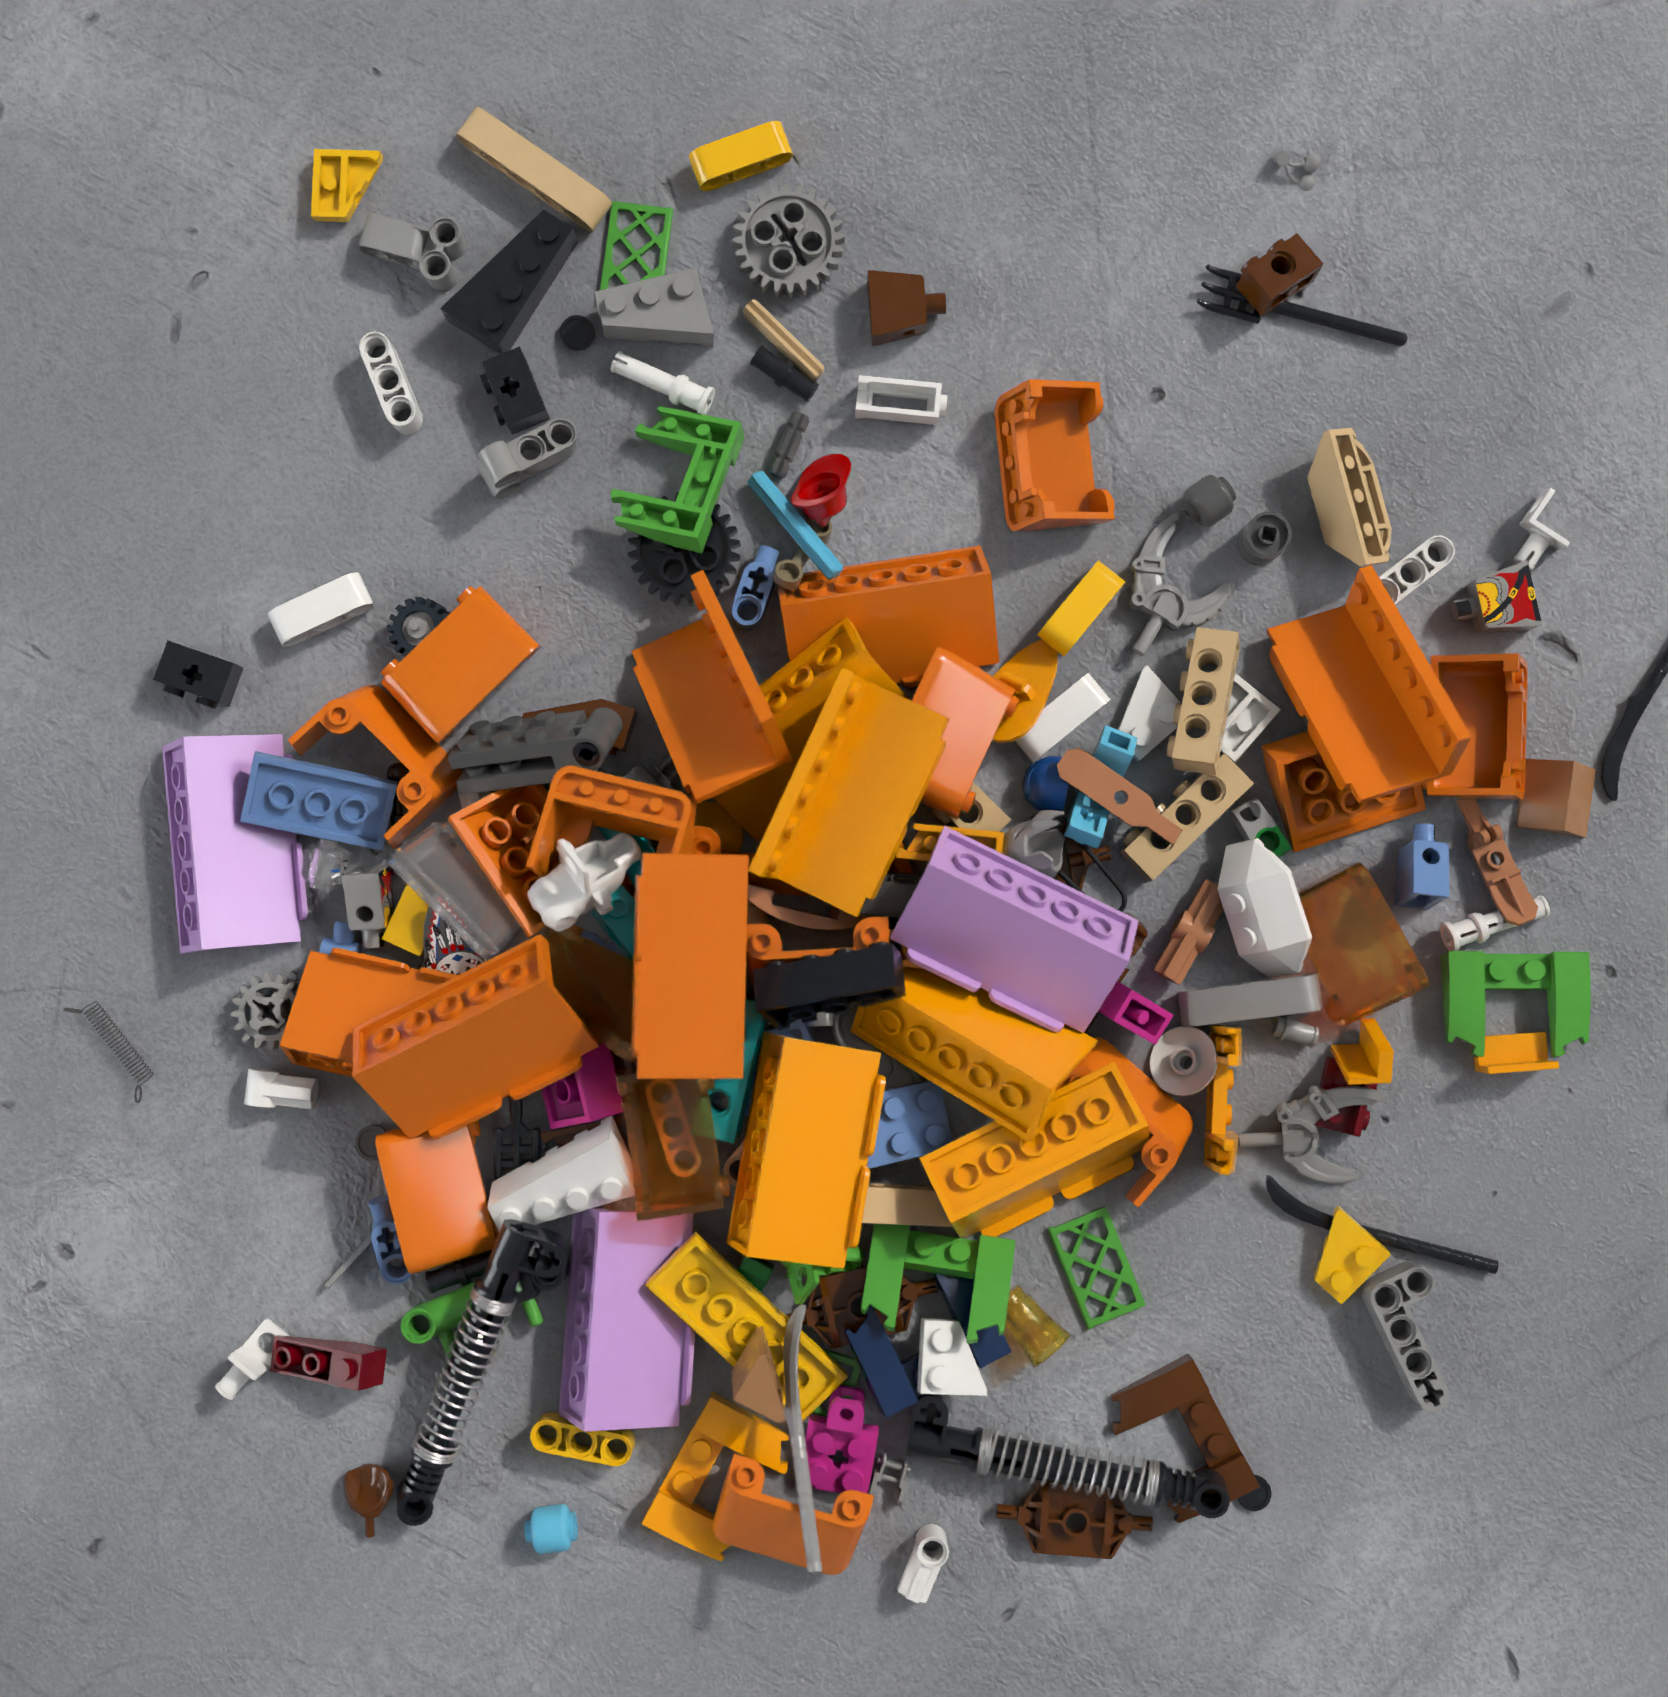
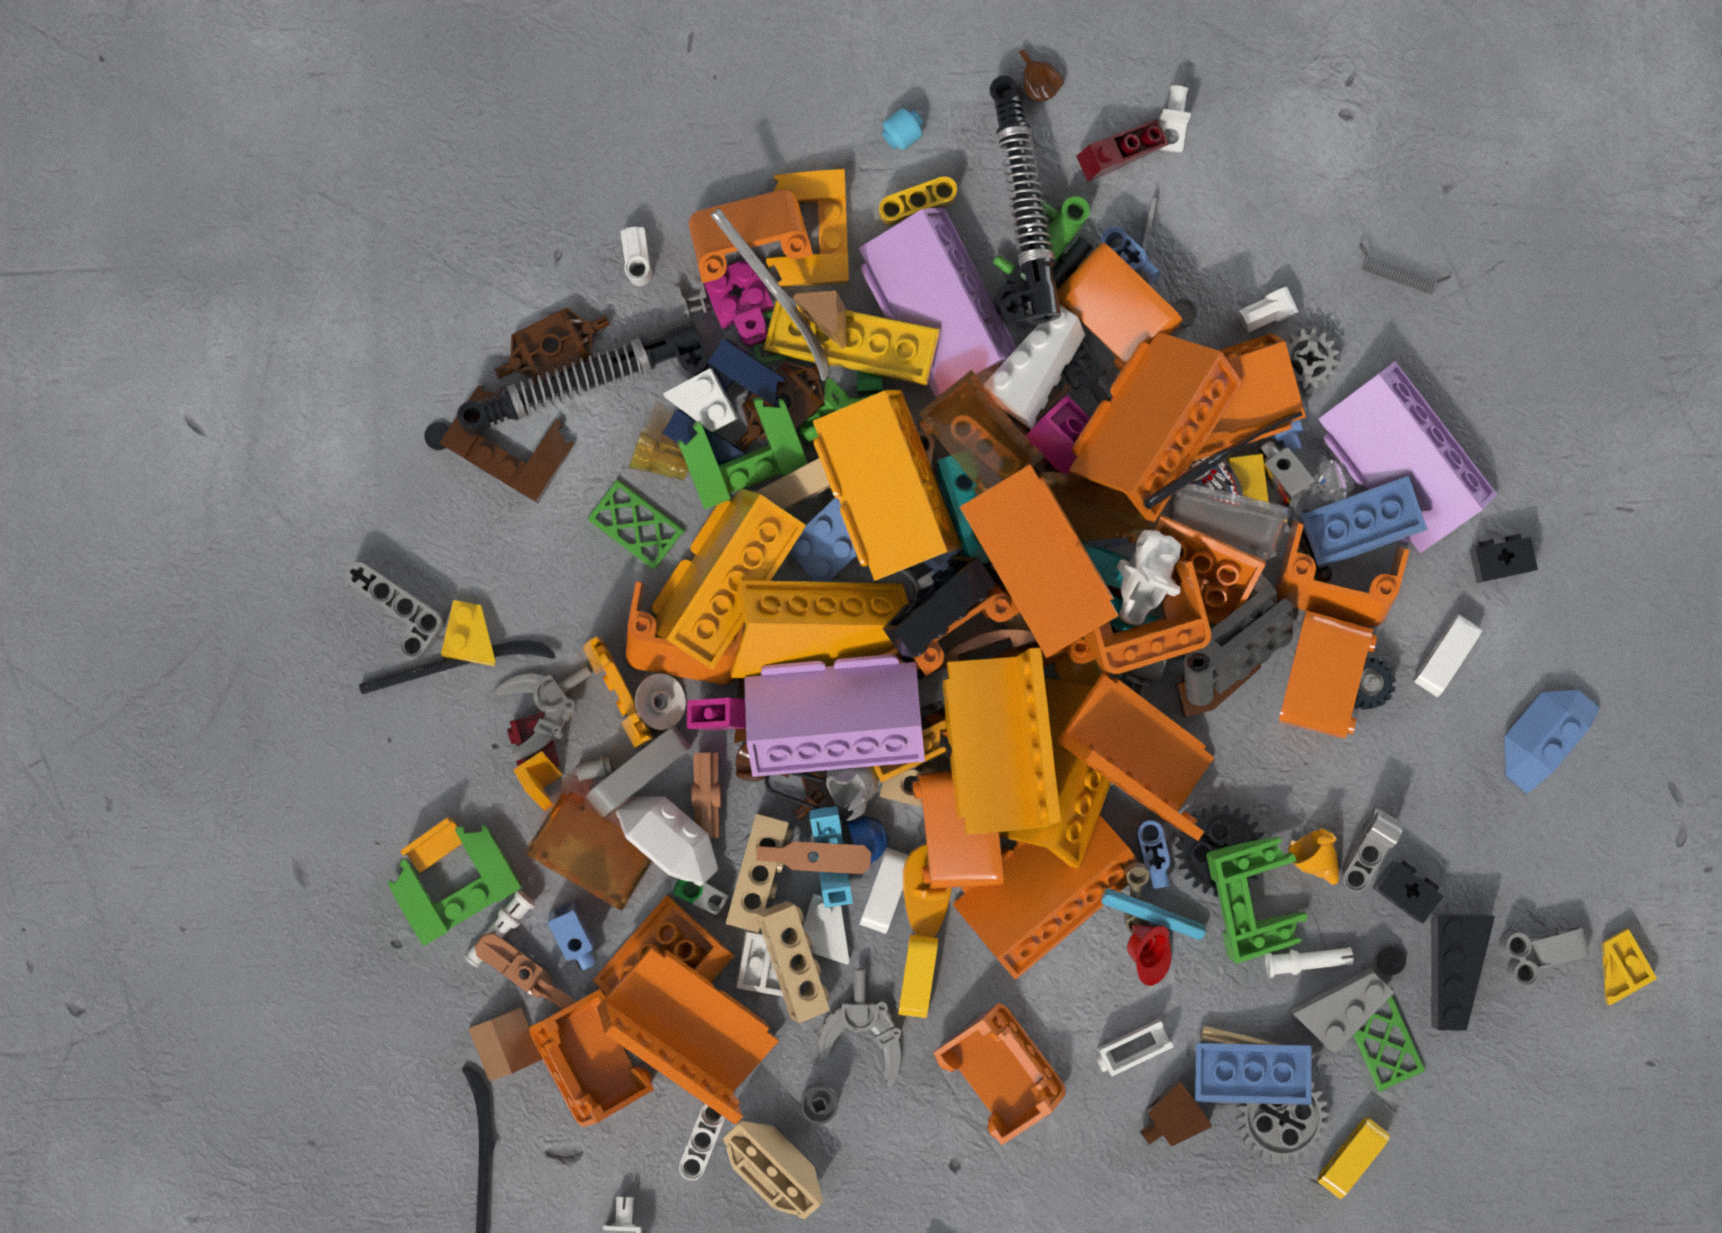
camera: 150 degrees right, 0 degrees up
(270, 463) = (1546, 736): none -> medium blue wedge
(380, 371) = (1511, 848): white beam -> none
(446, 961) = (1210, 463): none -> black piece
(534, 169) = (1493, 1058): tan beam -> none
(587, 485) = (1317, 855): none -> light orange hat
(784, 374) = (1226, 1018): black pin -> none
(788, 444) = (1193, 970): dark grey axle -> none
(792, 297) = (1253, 1073): none -> medium blue plate
(1208, 501) = (873, 1107): dark grey head -> none
(1500, 602) = (626, 1159): torso -> none

